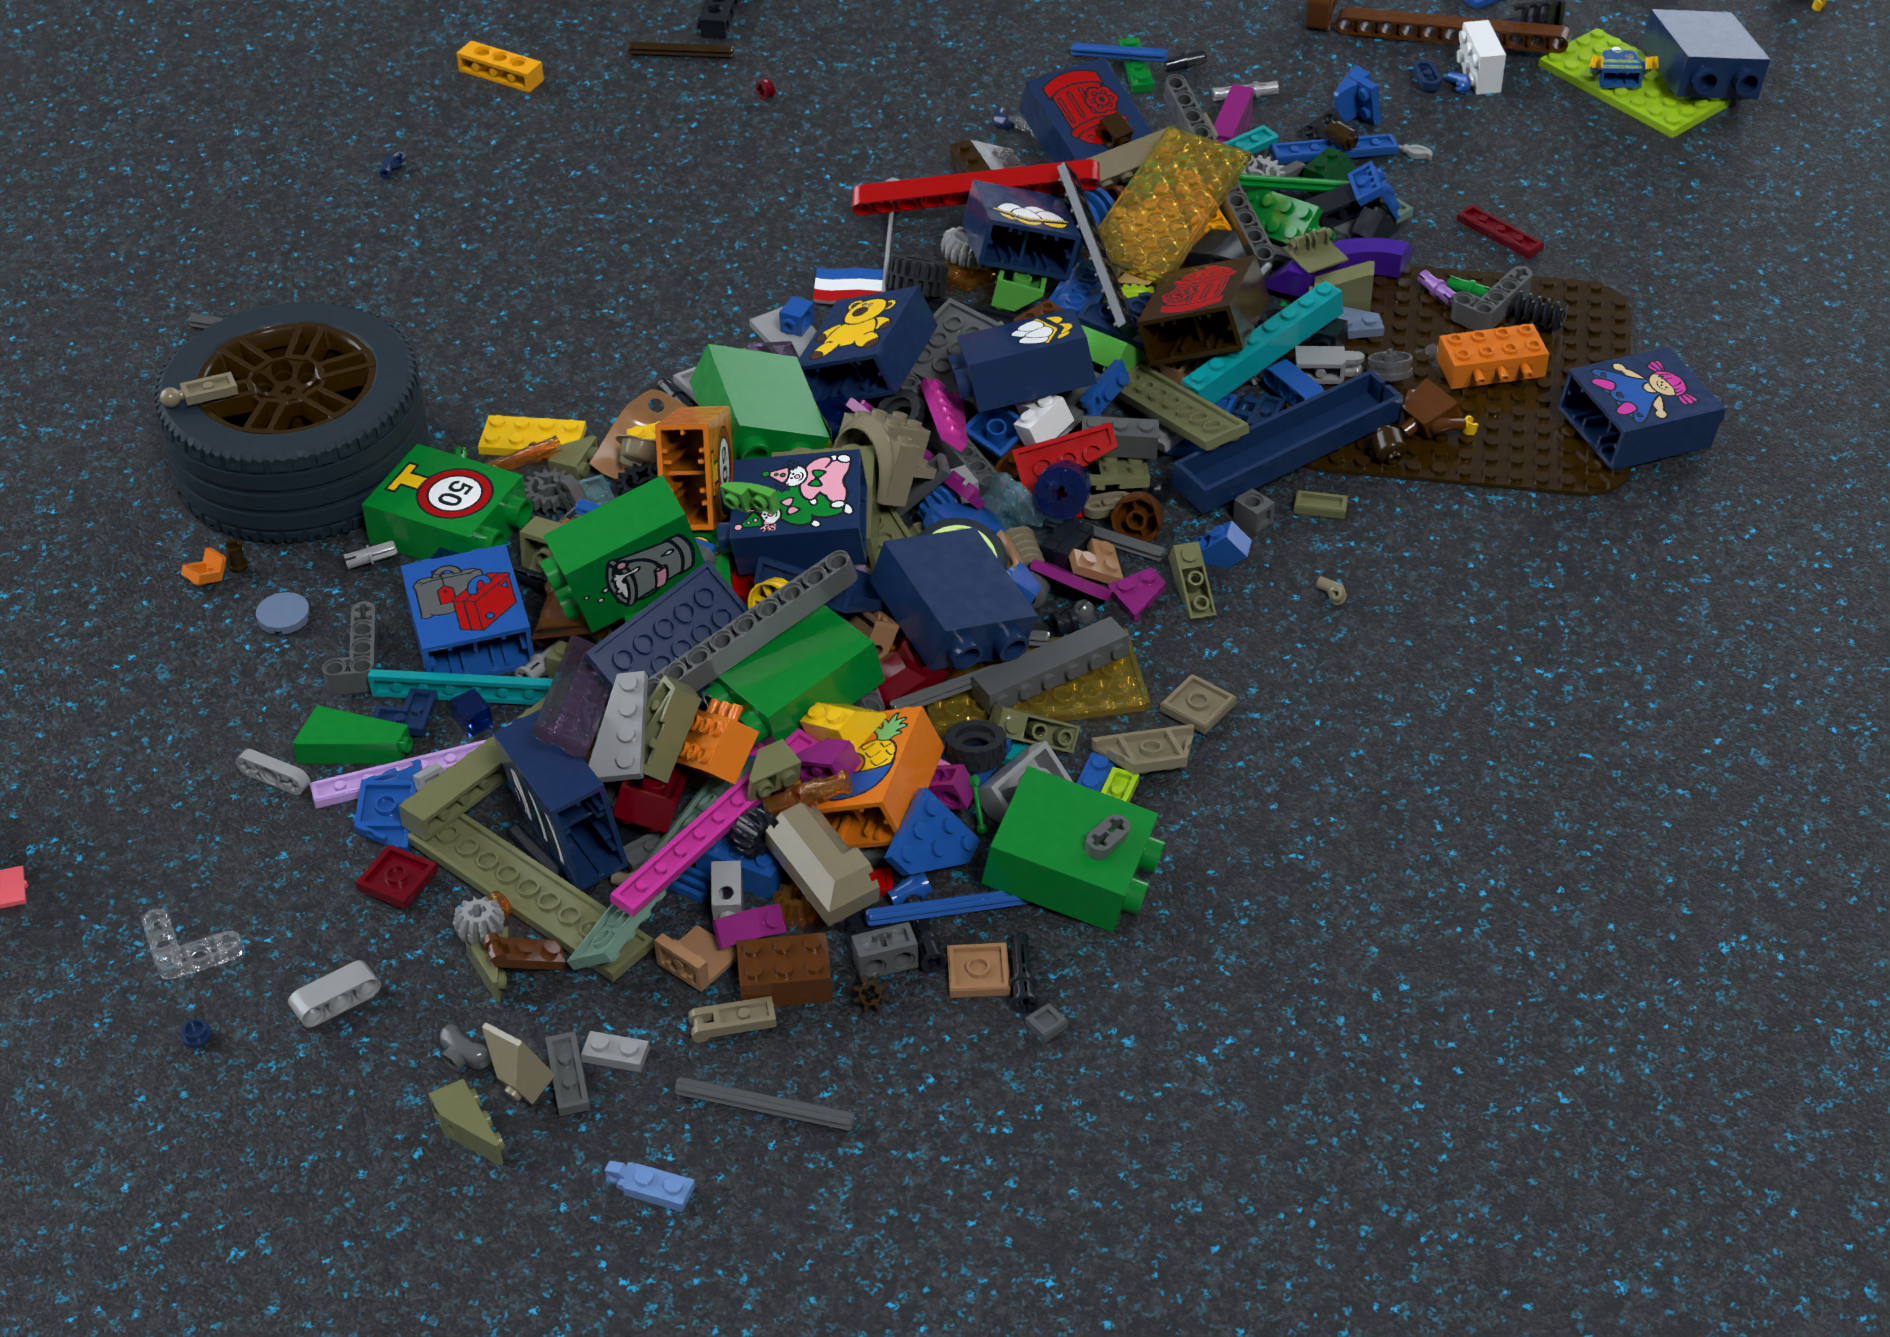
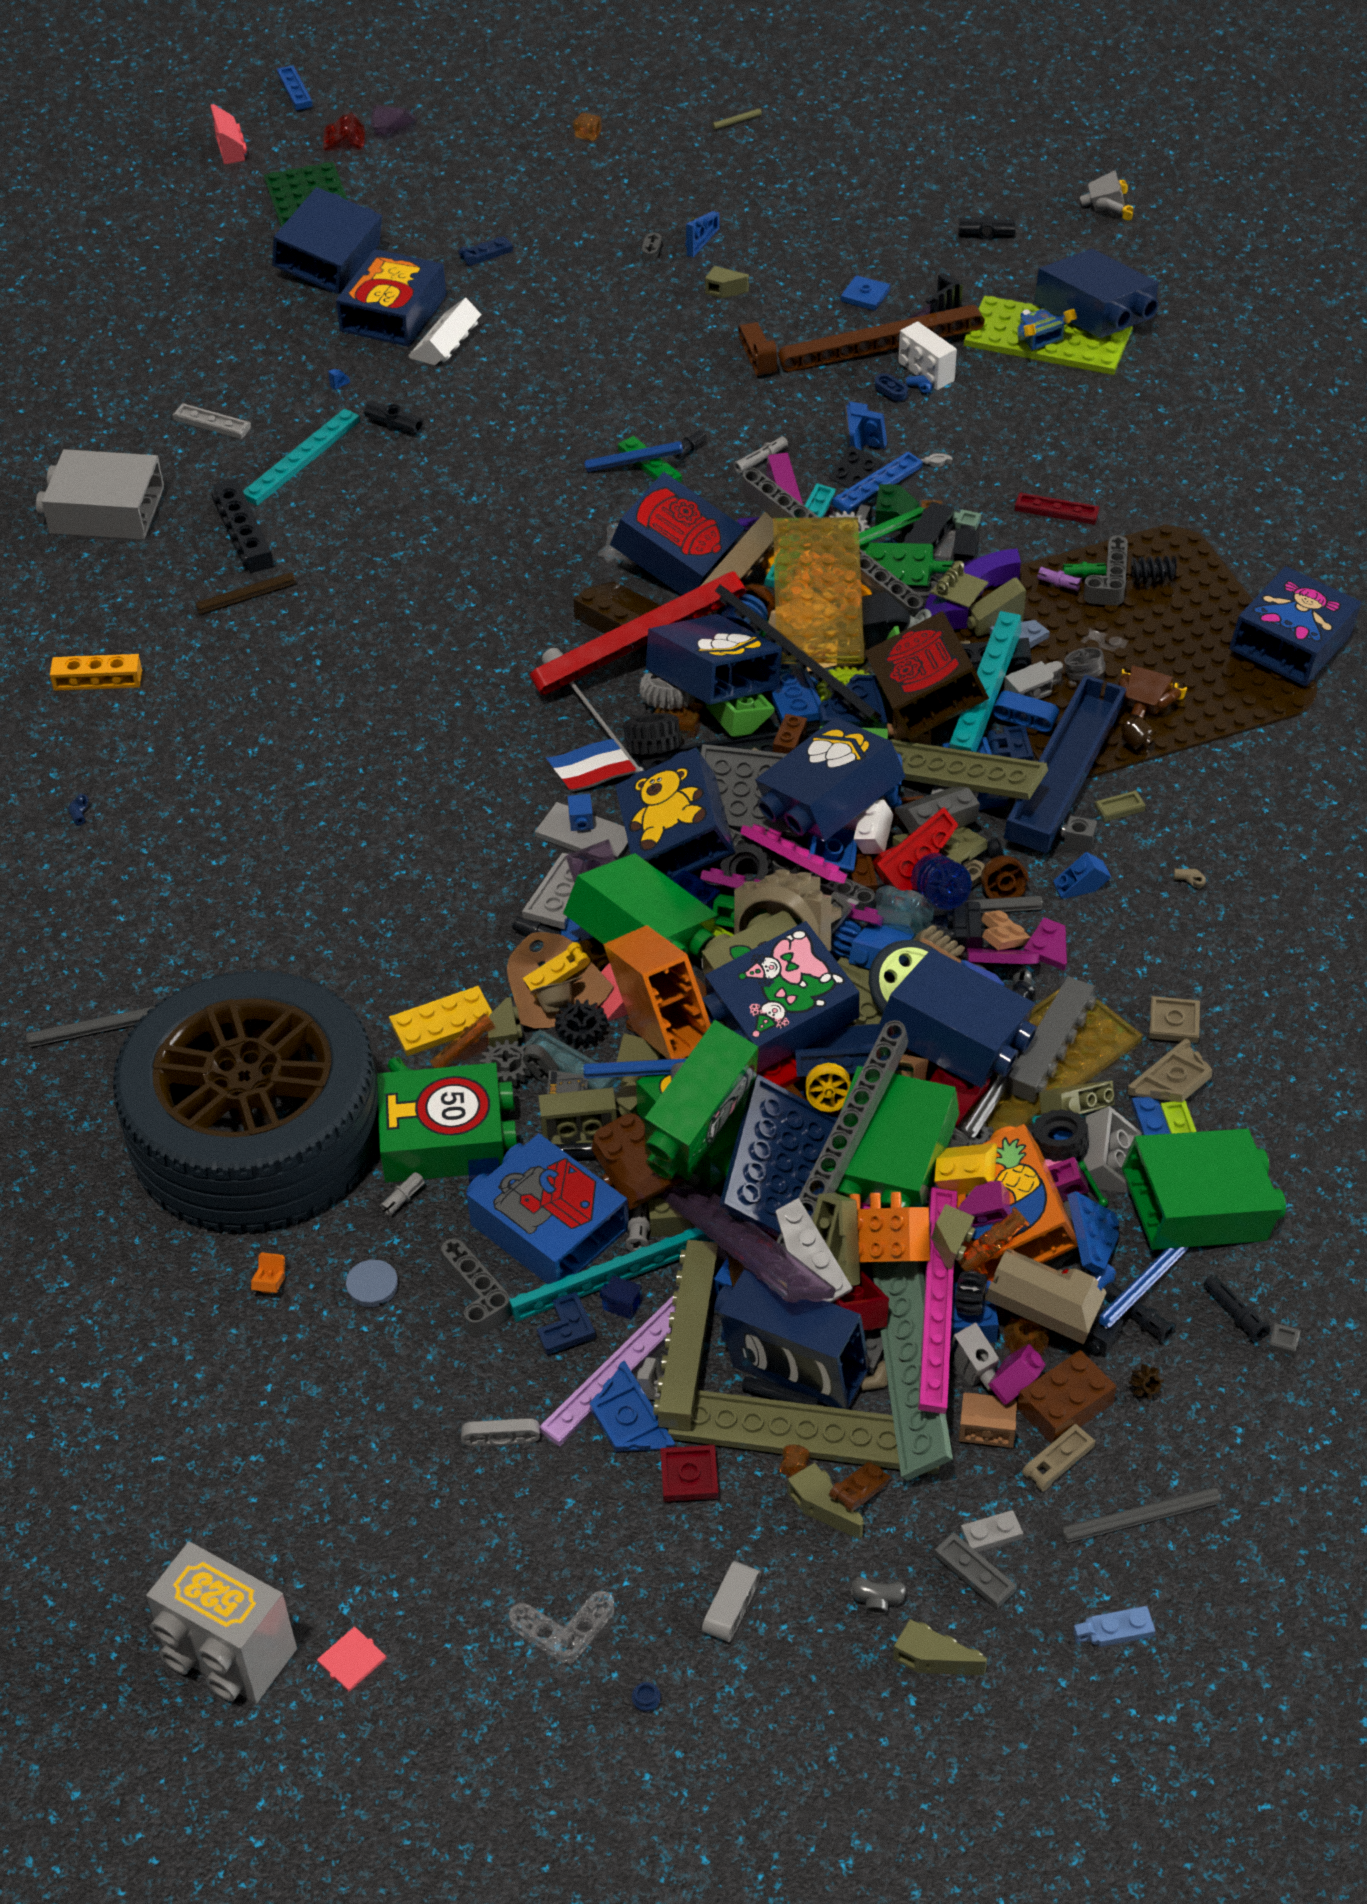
camera: 30 degrees left, 5 degrees up
(200, 390) = (184, 1112): dark tan plate -> none
(237, 562) = (287, 1248): dark brown pin -> none
(350, 738) = (541, 1369): green slope -> none
(478, 919) = (810, 1478): light grey gear -> none
(516, 1065) = (943, 1584): dark tan slope -> none
(745, 495) = (744, 1004): bright green slope -> none
(765, 88) = (357, 603): dark red bush -> none
(885, 951) = (1130, 1342): dark grey brick -> none
(978, 970) = (1200, 1322): medium nougat tile -> none
(1001, 119) = (584, 557): dark blue arm -> none
(1111, 840) = (1241, 1168): dark grey beam -> none
(1114, 131) = (719, 538): dark brown brick -> none
(1192, 580) = (1085, 916): olive slope -> none
(1341, 135) = (882, 469): dark brown brick -> none
(1370, 184) = (949, 510): blue bracket -> none
(1492, 356) = (1151, 624): orange piece -> none

